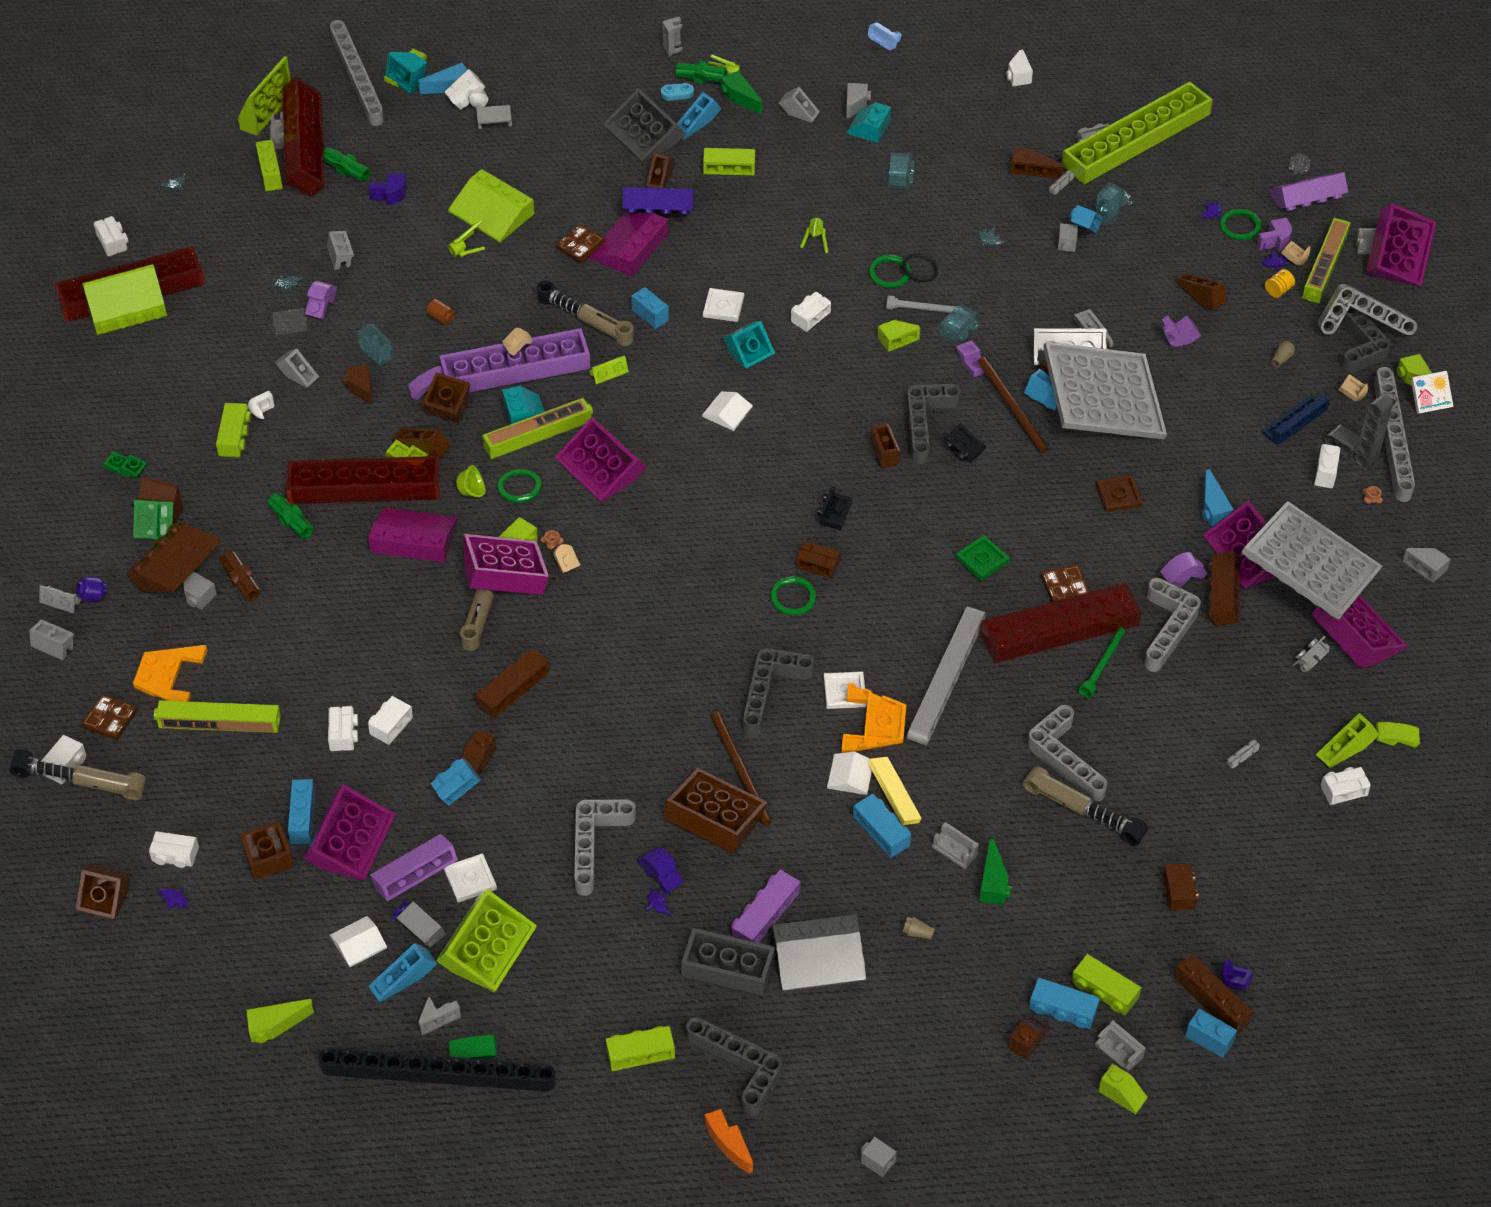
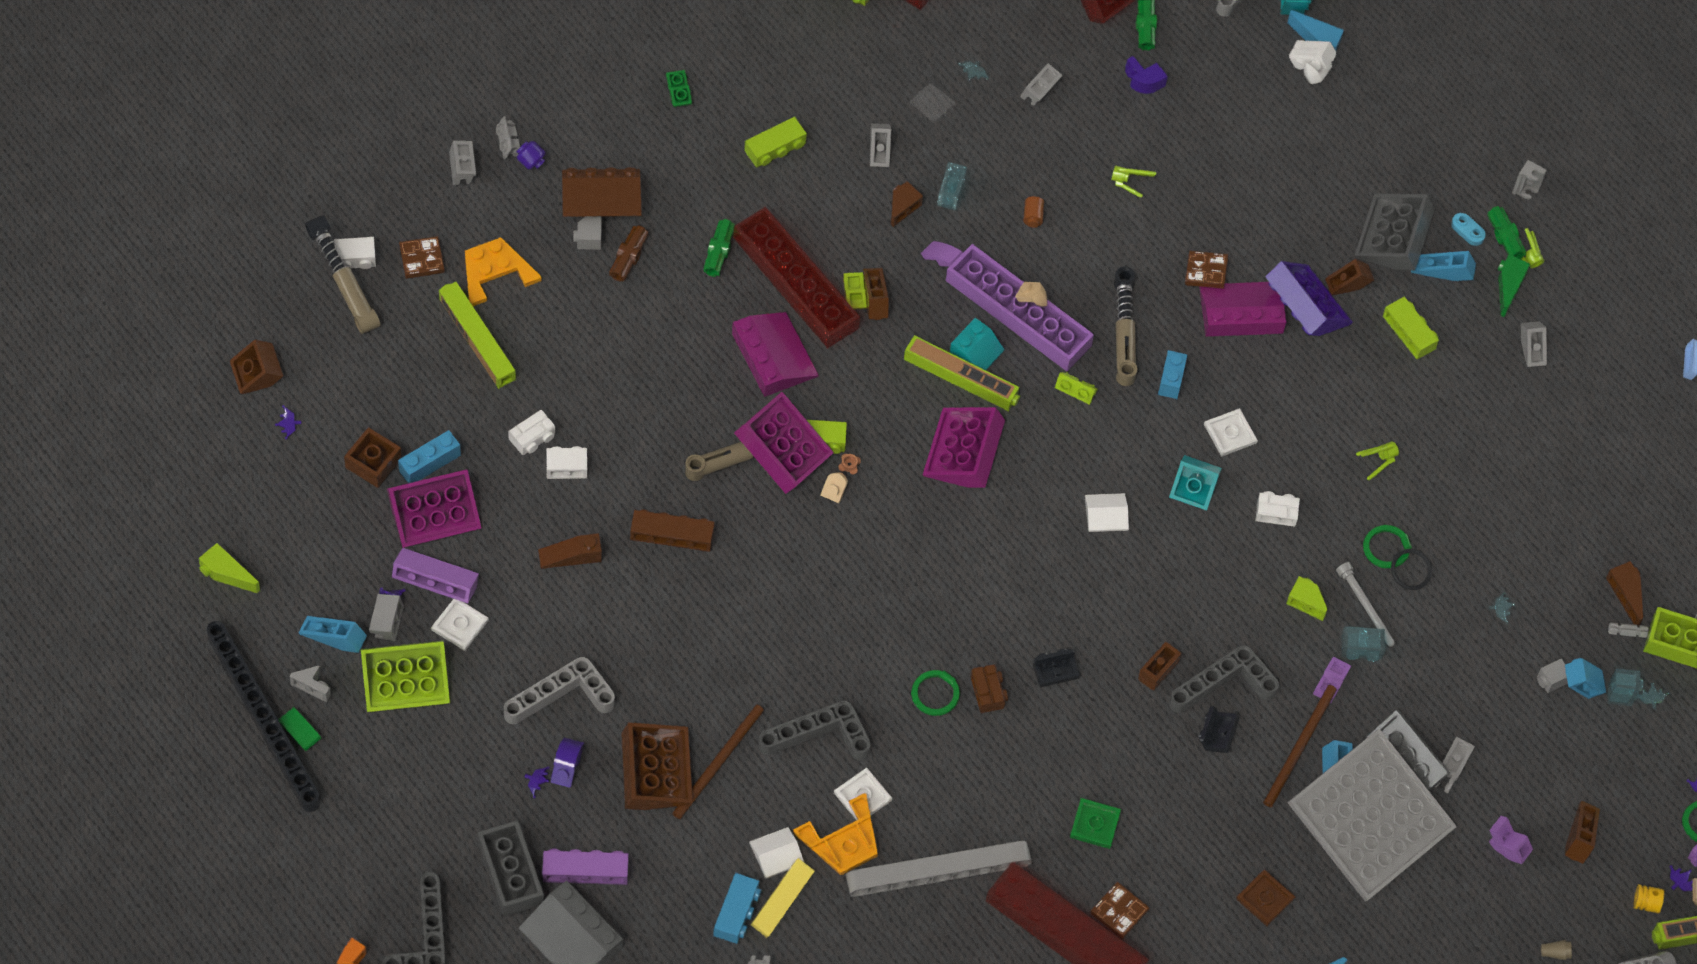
camera: 50 degrees right, 10 degrees up
(152, 518) = (632, 147): green slope -> none
(161, 491) = (652, 142): reddish brown slope -> none
(173, 849) = (329, 391): white brick -> none
(261, 404) = (818, 143): white plate -> none
(319, 296) = (972, 105): medium lavender brick -> none
(358, 941) = (342, 581): white slope -> none
(446, 397) = (933, 280): reddish brown slope -> none
(455, 781) = (538, 551): dark azure brick -> none
(470, 482) = (859, 361): lime helmet -> none
(494, 114) = (1303, 100): light grey hinge -> none
(494, 203) = (1191, 170): lime slope -> none
(522, 498) = (885, 416): green piece -> none
(640, 1048) = (385, 852): lime brick -> none
(856, 98) = (1585, 386): light grey slope -> none
(871, 122) = (1565, 418): teal slope -> none
(900, 170) = (1521, 480): clear light blue brick -> none

